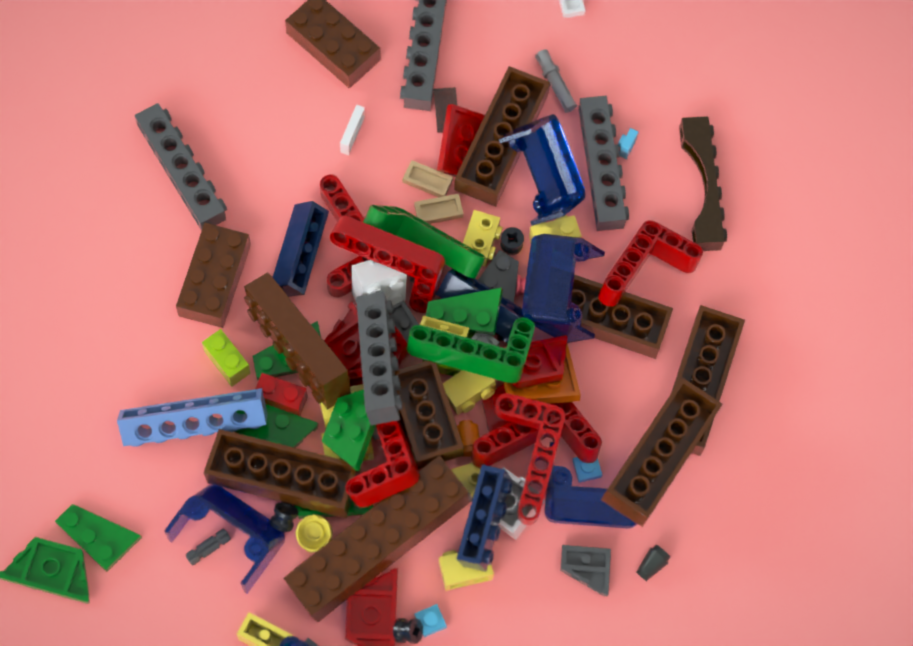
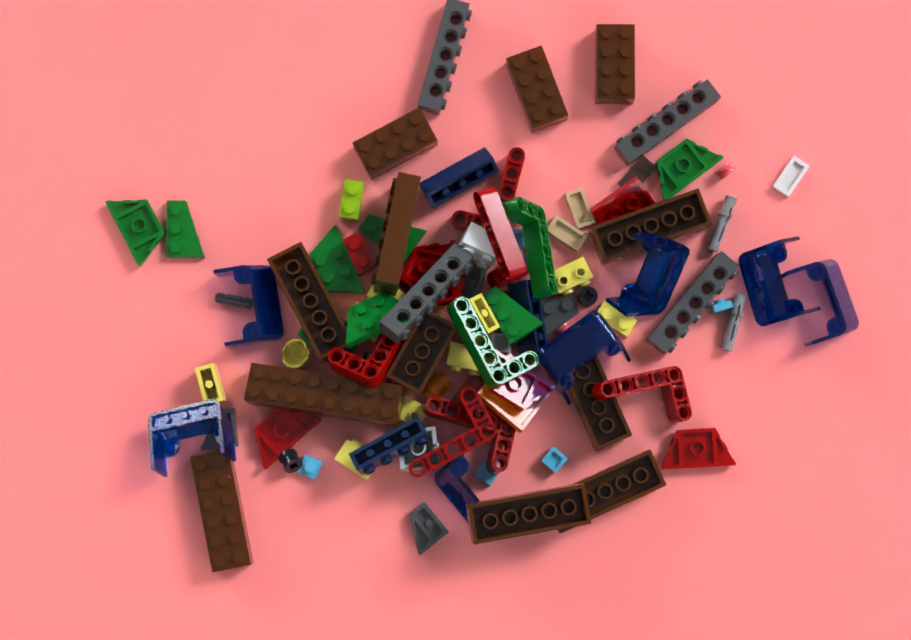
camera: 50 degrees right, 15 degrees up
(201, 408) = (296, 218): medium blue brick -> none
(284, 517) = (288, 327): black wheel -> none
(288, 119) = (536, 89): none -> reddish brown brick
(352, 130) = (567, 133): white tile -> none
(476, 66) = (683, 166): none -> green wing
(513, 37) = (726, 170): none -> coral bush
(631, 398) = (554, 459): none -> medium azure plate
(643, 94) = (766, 286): none -> clear blue windscreen
(653, 562) = (464, 563): pearl dark grey cone -> none
(654, 151) = (733, 322): none -> light grey pin
(697, 143) = (763, 348): dark brown arch -> none
(706, 47) = (836, 289): none -> clear blue windscreen
(735, 273) = (696, 449): none -> red wing

